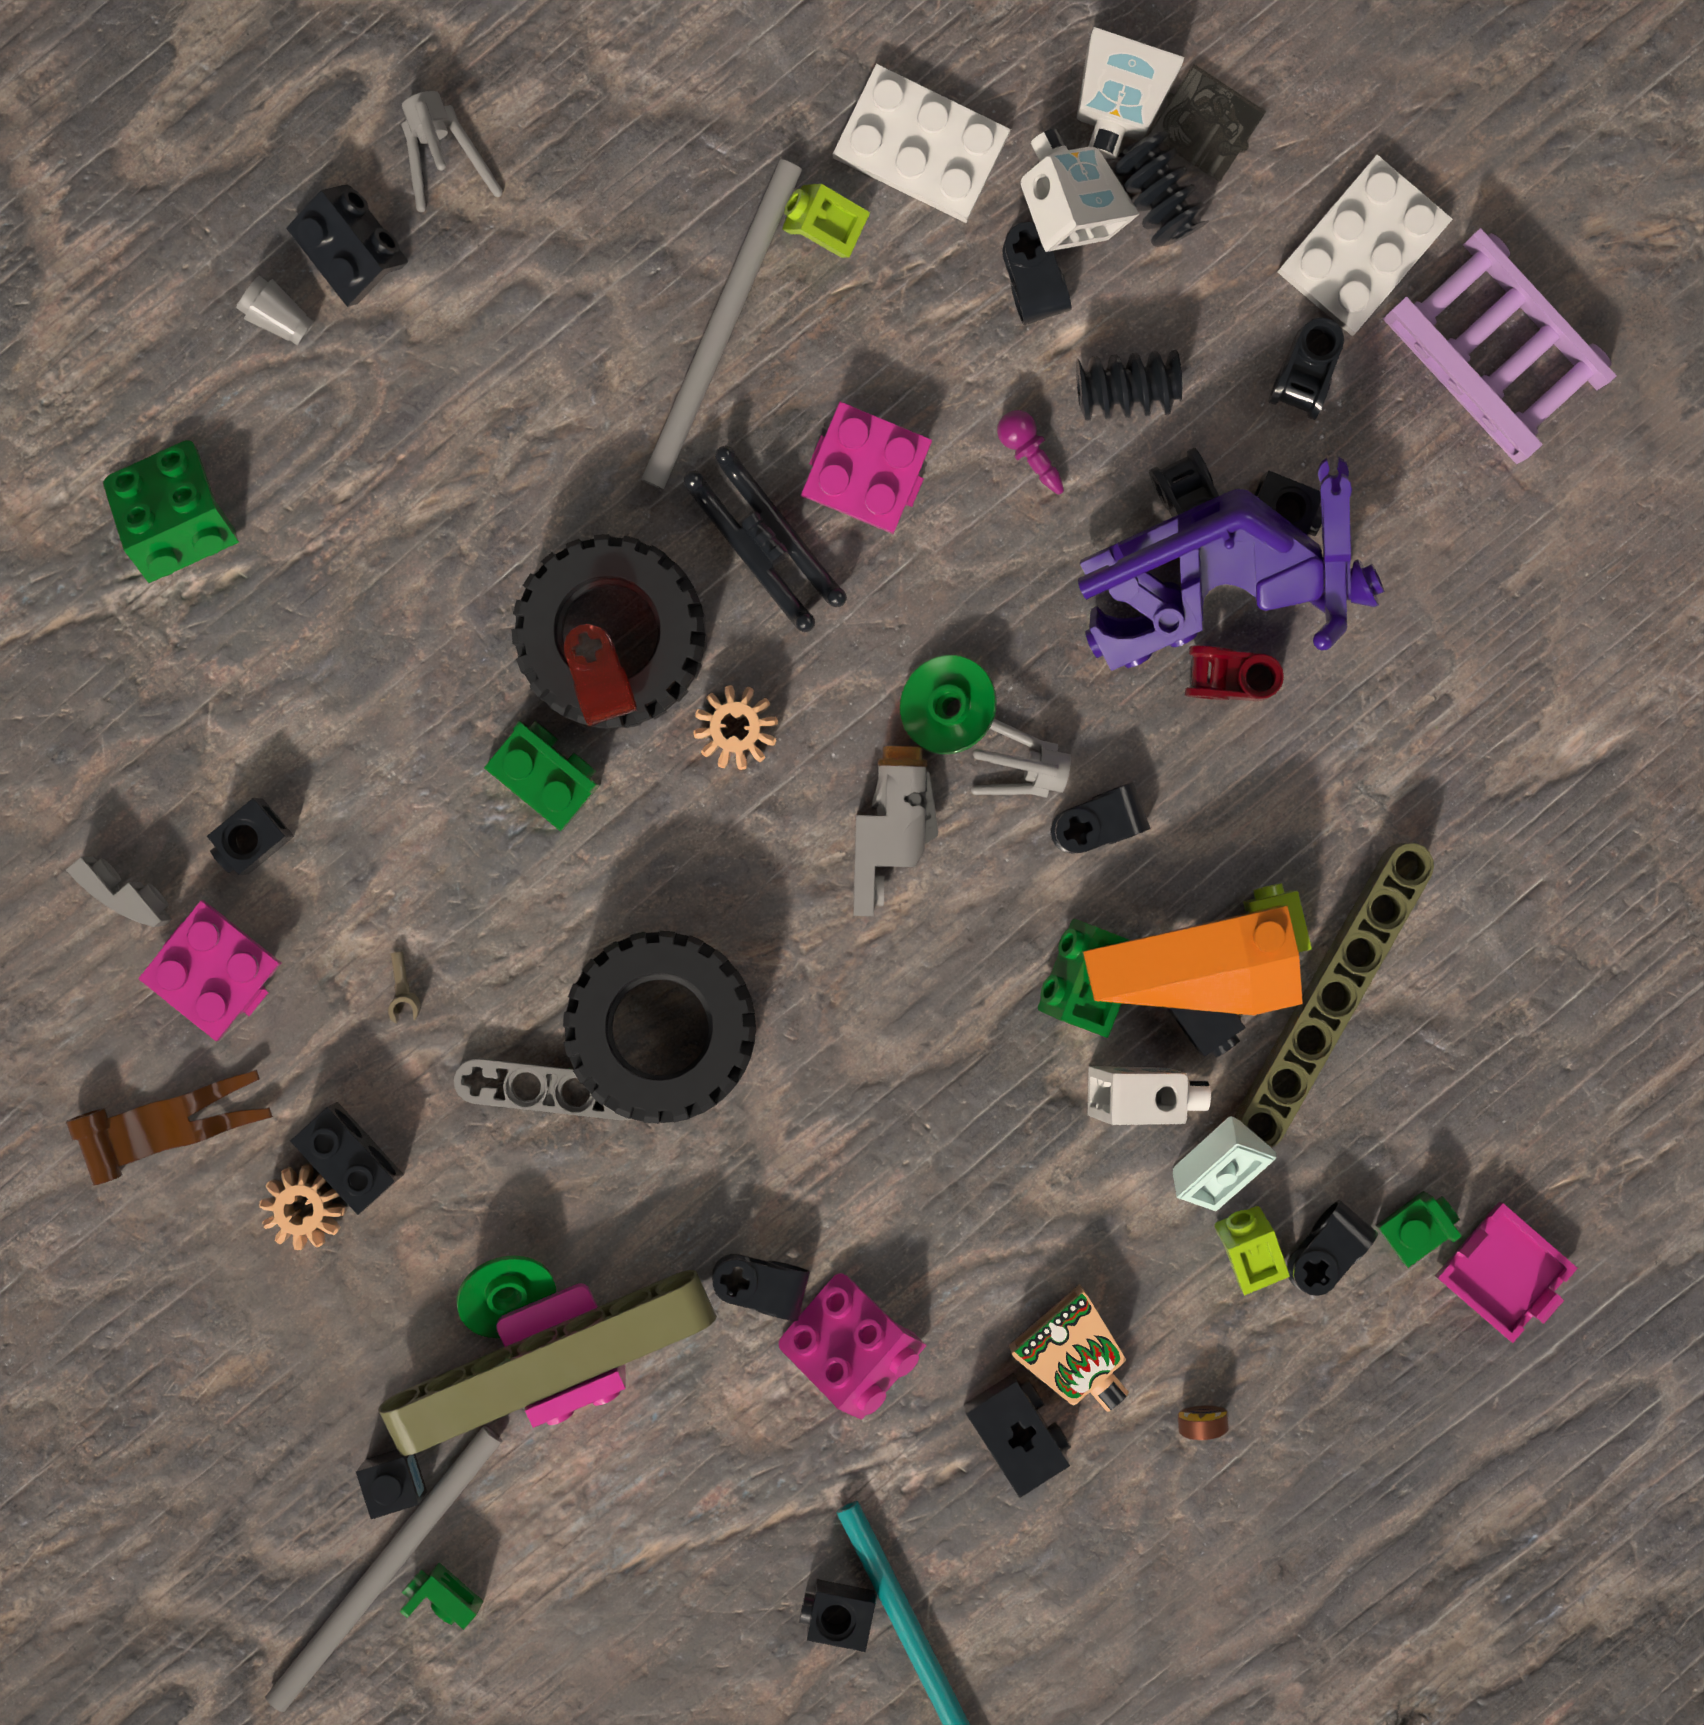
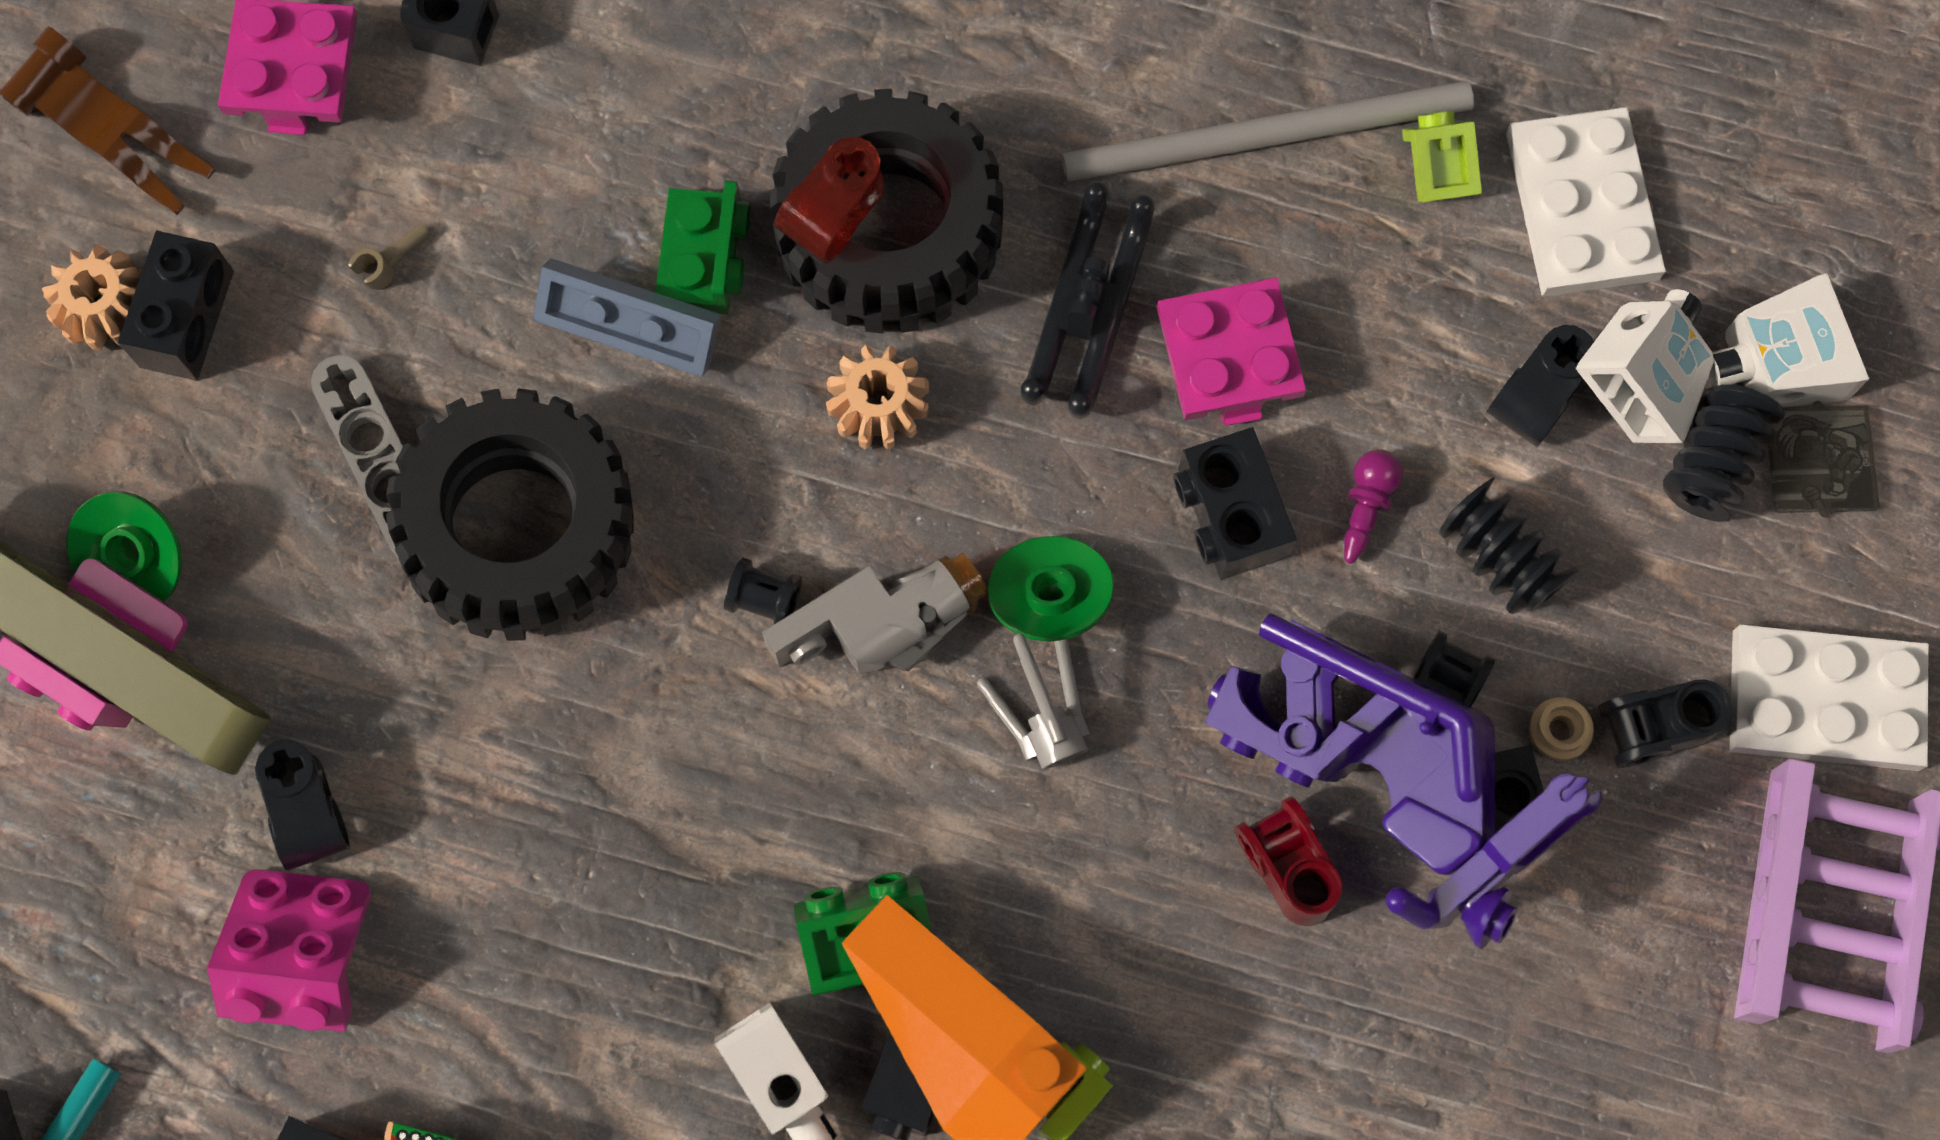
camera: 50 degrees right, 15 degrees down
(561, 859) = (626, 317): none -> sand blue plate
(820, 894) = (762, 592): none -> black bush
(977, 528) = (1249, 501): none -> black brick
(1107, 820) = (1051, 836): black piece -> none
(1279, 430) = (1576, 719): none -> tan plate

